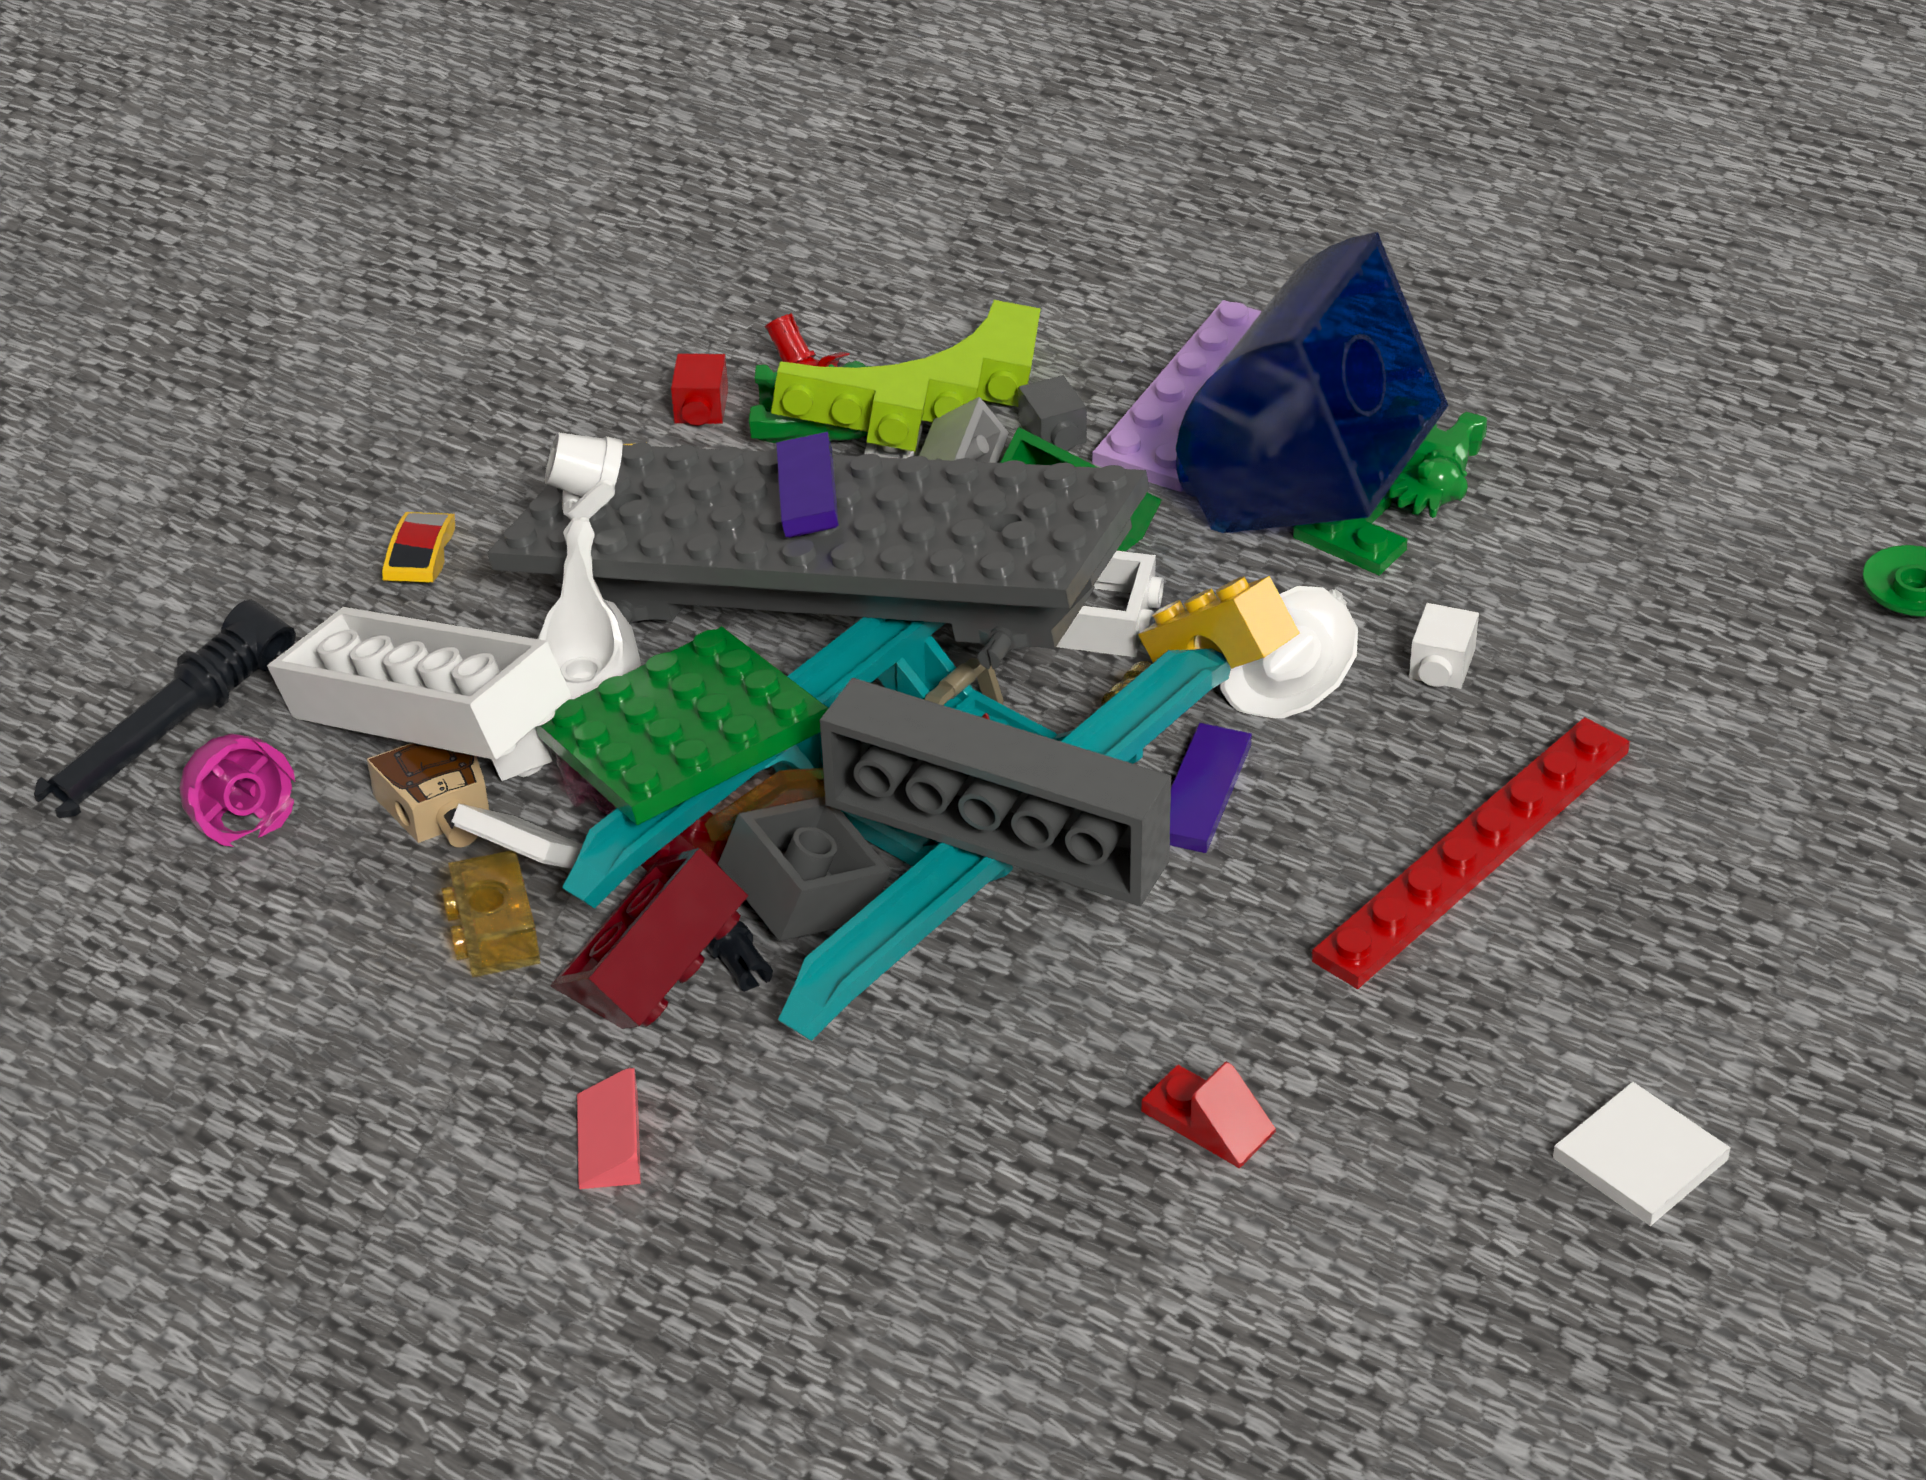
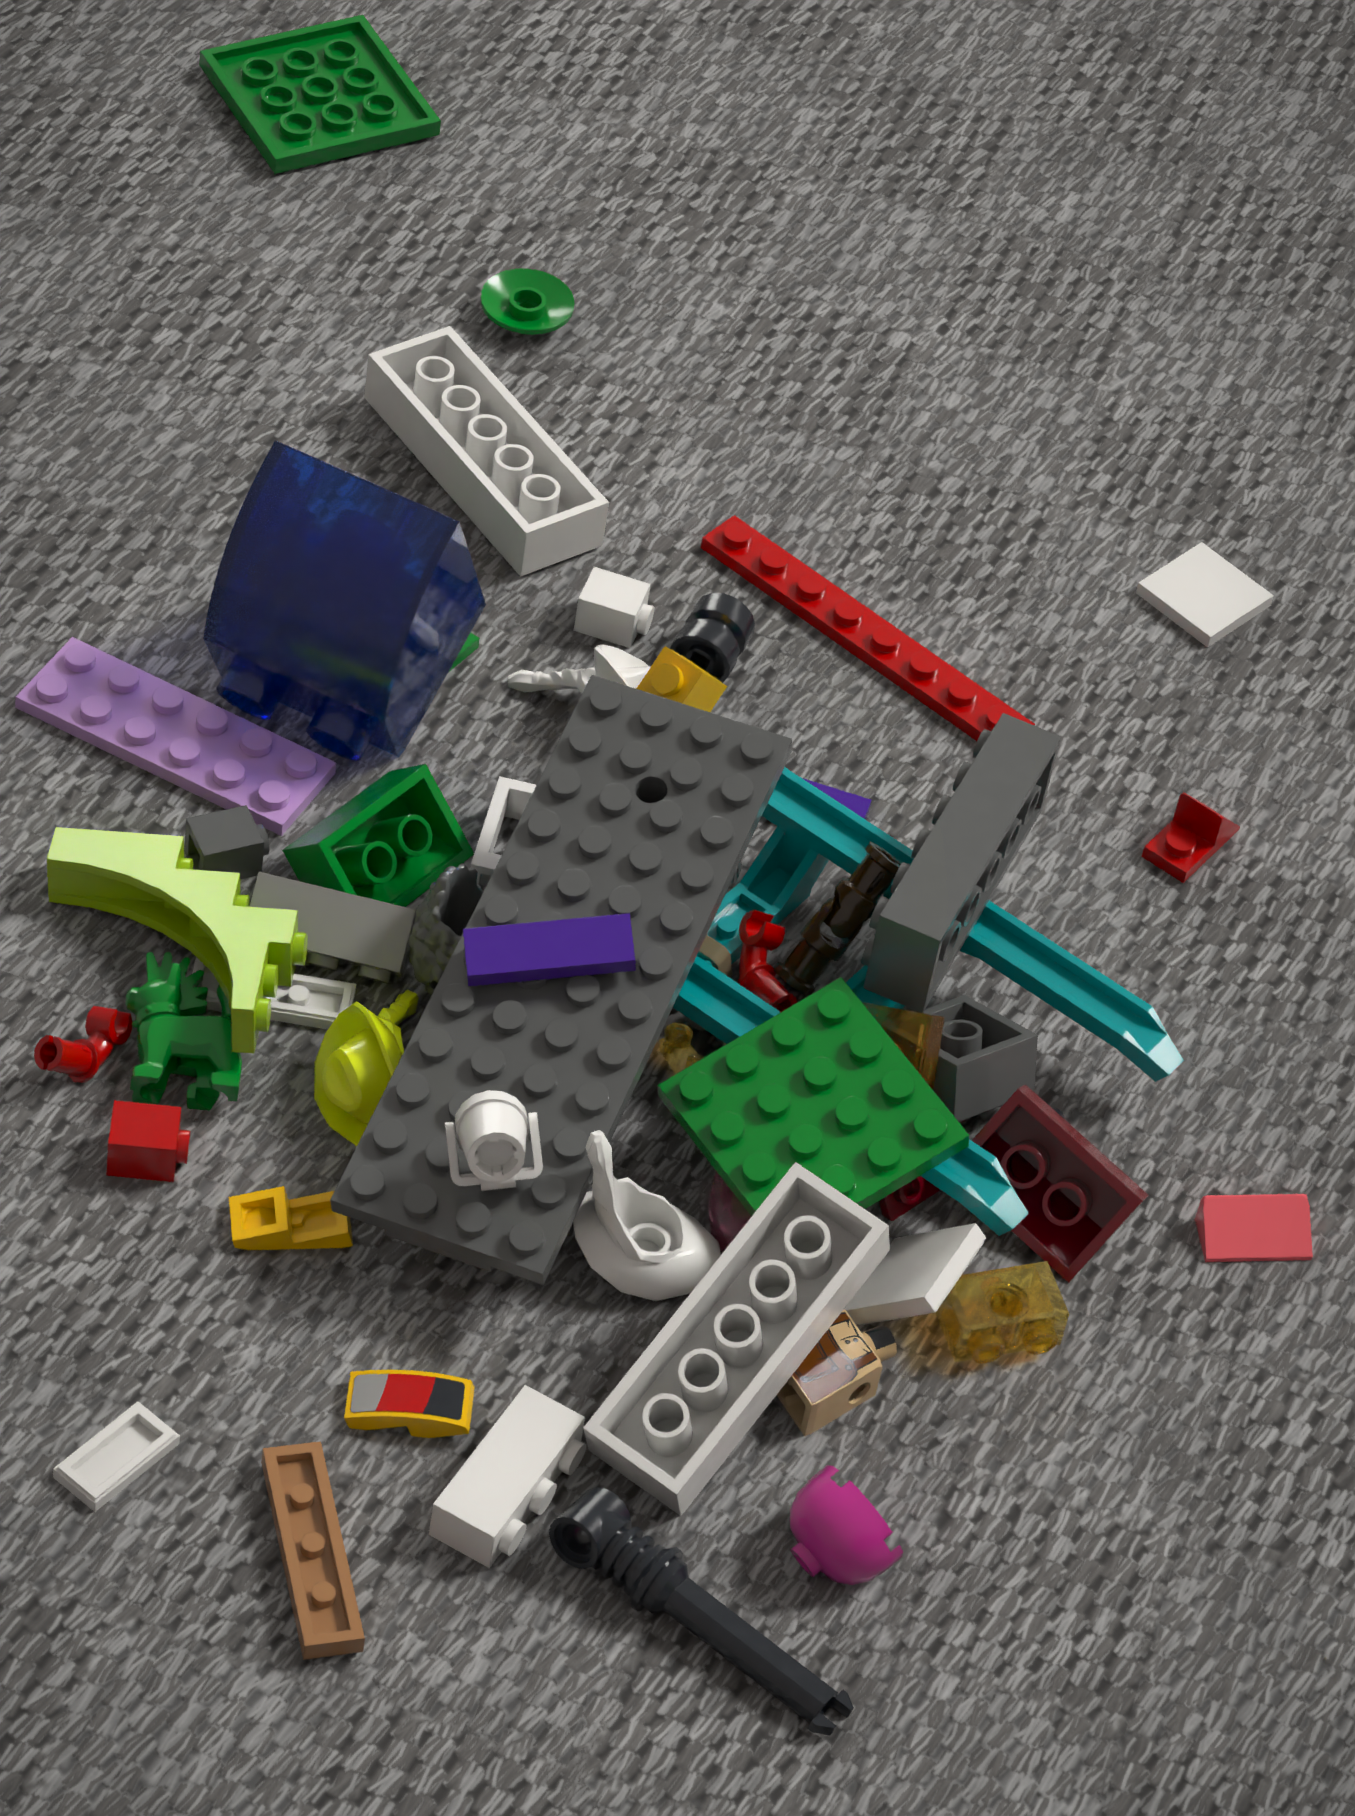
camera: 100 degrees left, 5 degrees up
(271, 499) = (312, 1550): none -> medium nougat plate
(313, 585) = (508, 1477): none -> white brick
(383, 404) = (116, 1456): none -> white tile
(1410, 713) = (715, 634): none -> black wheel
(1643, 545) = (486, 450): none -> white brick

